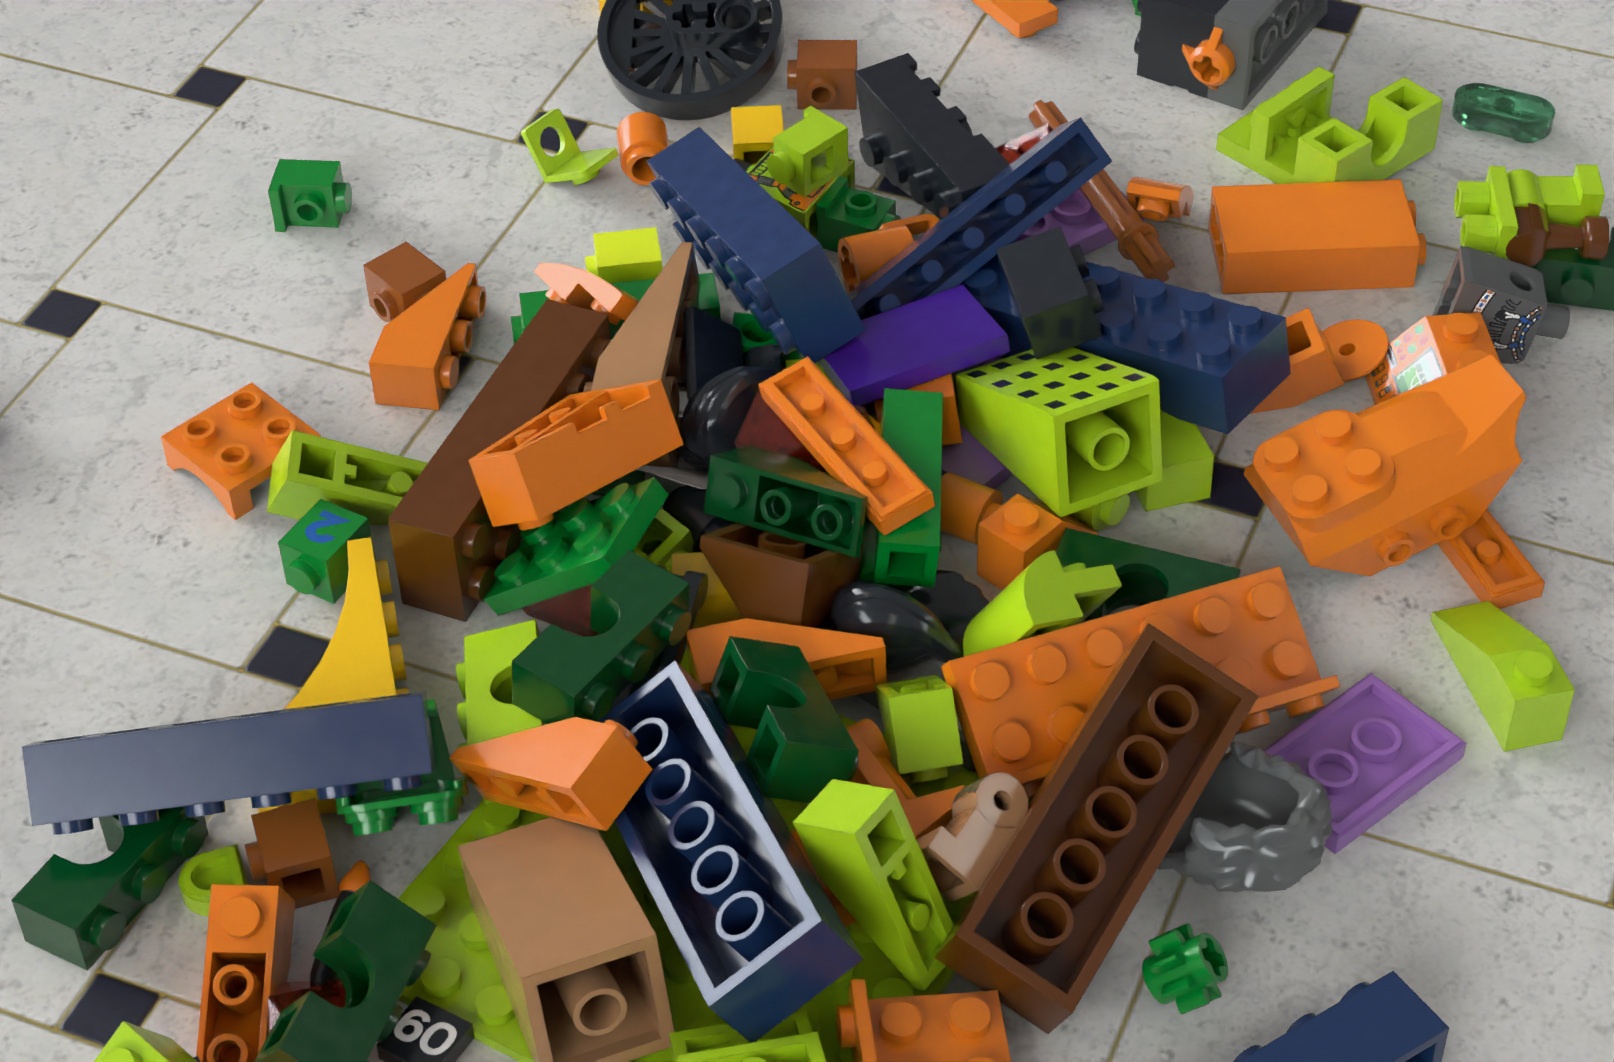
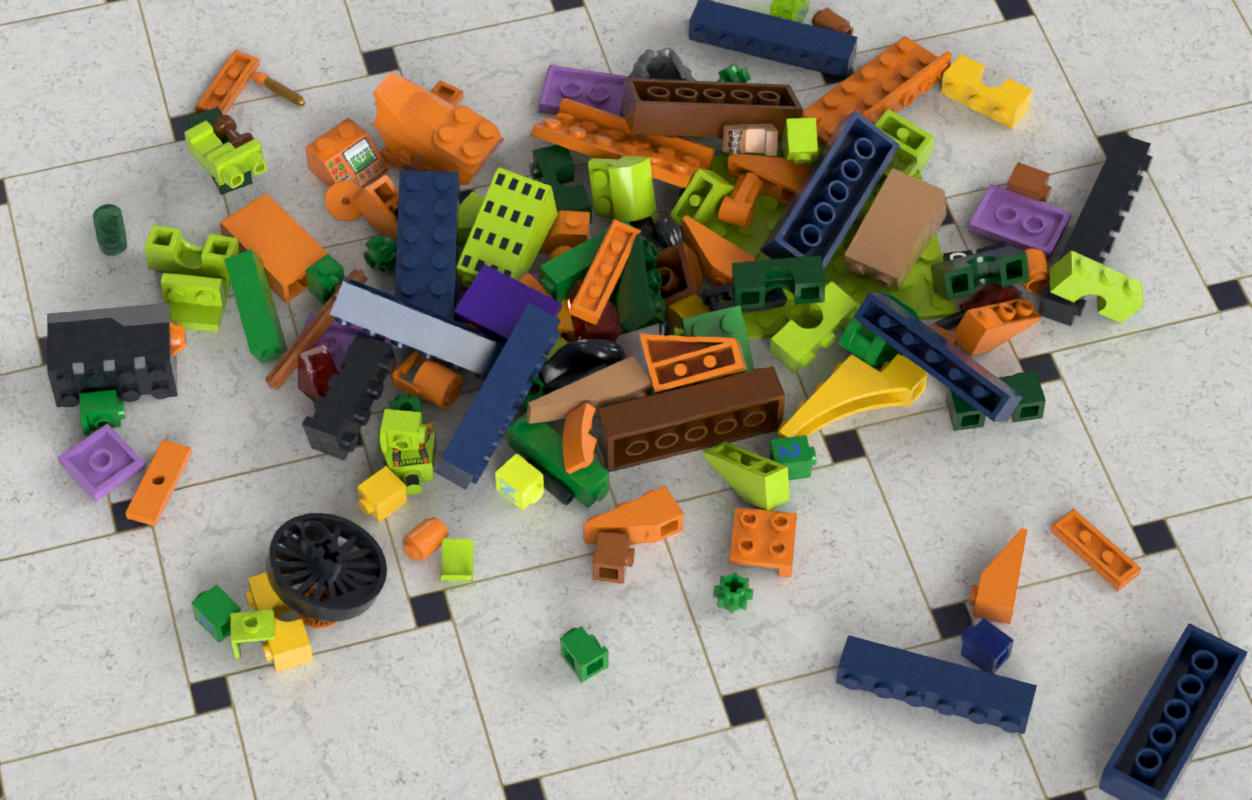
camera: 130 degrees left, 10 degrees up
(206, 368) = (733, 592): none -> green gear
(559, 770) = (847, 250): orange slope -> none
(798, 731) = (769, 188): dark green arch -> none
(824, 74) = (298, 499): dark orange brick -> none
(1050, 291) = (451, 255): black brick -> none
(1159, 199) = (301, 303): orange slope -> none
(1196, 249) = (323, 278): none -> green brick
(1200, 148) = (256, 306): none -> green brick
(1508, 674) = (501, 69): lime slope -> none
(1509, 300) = (290, 149): dark grey torso -> none

